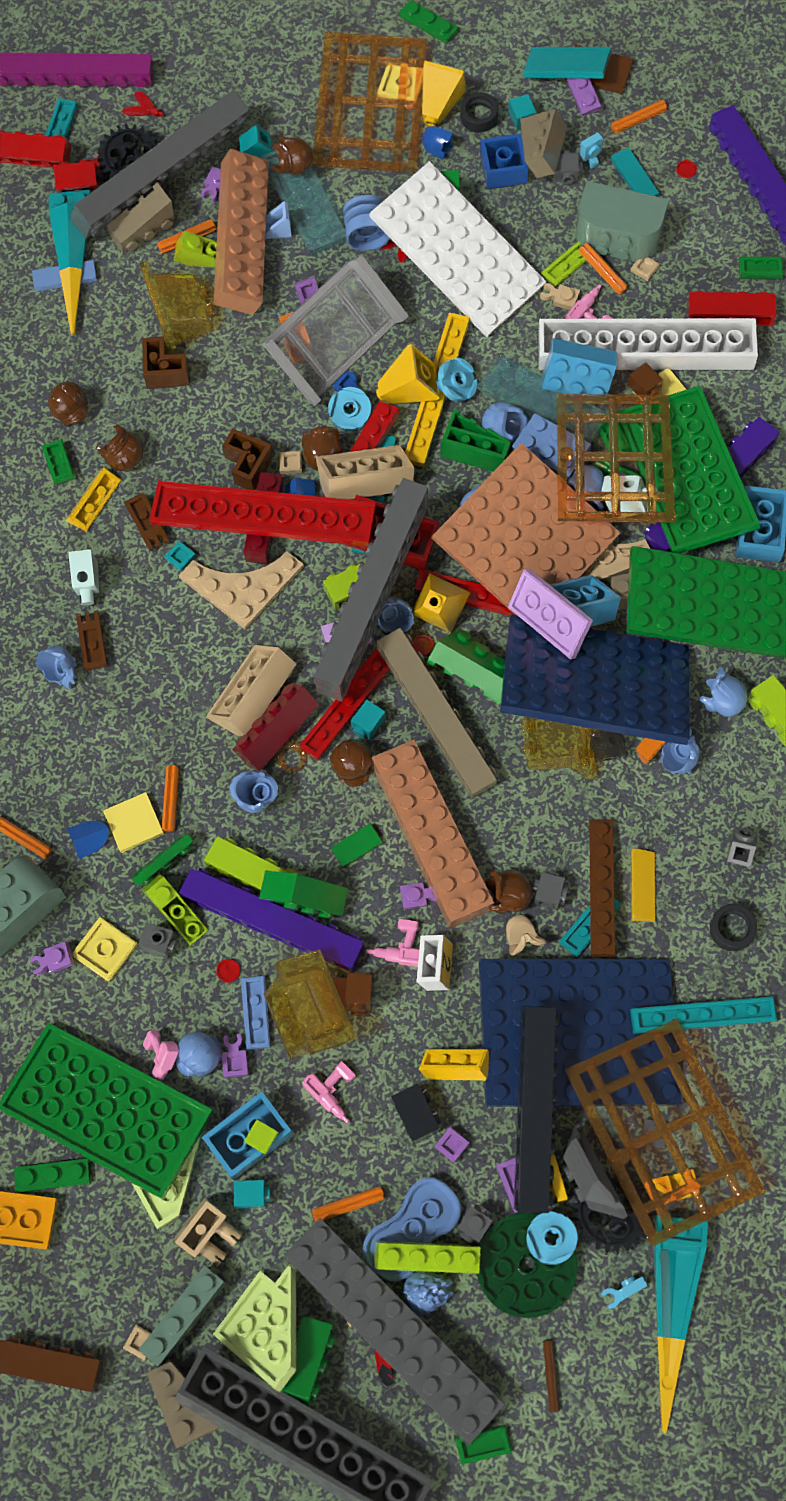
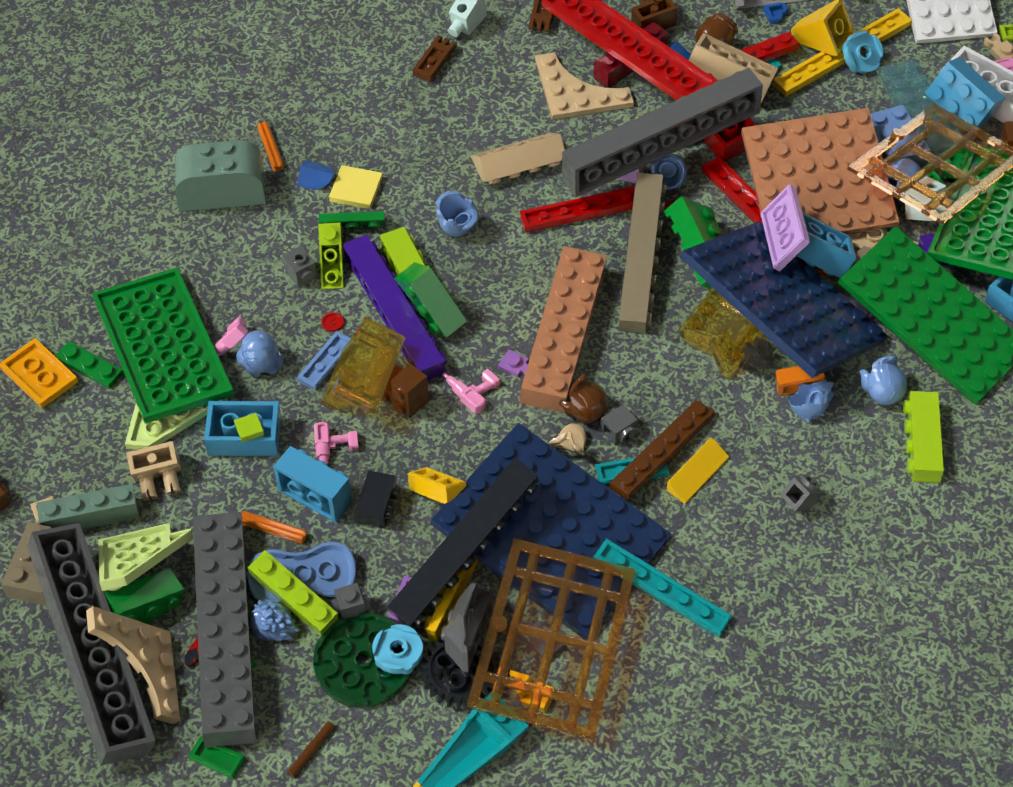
camera: 35 degrees right, 15 degrees down
(55, 959) = (221, 233): medium lavender plate -> none
(57, 665) = (395, 56): medium blue hair -> none
(104, 949) = (259, 251): light yellow tile -> none
(170, 798) = (395, 188): orange axle -> none
(180, 556) = (548, 45): teal tile -> none
(234, 1061) = (282, 378): medium lavender plate -> none
(251, 1194) = (209, 468): teal brick -> none
(275, 726) = (513, 187): dark red brick -> none
(290, 462) = (685, 35): tan tile -> none
(291, 745) = (501, 209): clear orange piece -> none
(343, 399) = (756, 16): medium azure plate -> none
(351, 762) = (546, 244): reddish brown hair -> none
(354, 1142) = (313, 484): none -> dark azure brick
(356, 845) = (501, 303): green tile -> none
(358, 1408) = (148, 652): none -> tan plate
(367, 720) = (586, 227): teal brick -> none
(434, 962) = (485, 410): white brick -> none
(449, 607) = (711, 182): yellow slope -> none
(451, 1145) = (384, 541): medium lavender plate -> none
(473, 444) = (832, 92): green wedge -> none
(505, 420) = (873, 95): medium blue hair -> none
(630, 1287) = (422, 731): medium azure plate -> none
(739, 910) = (744, 562): black tyre -> none

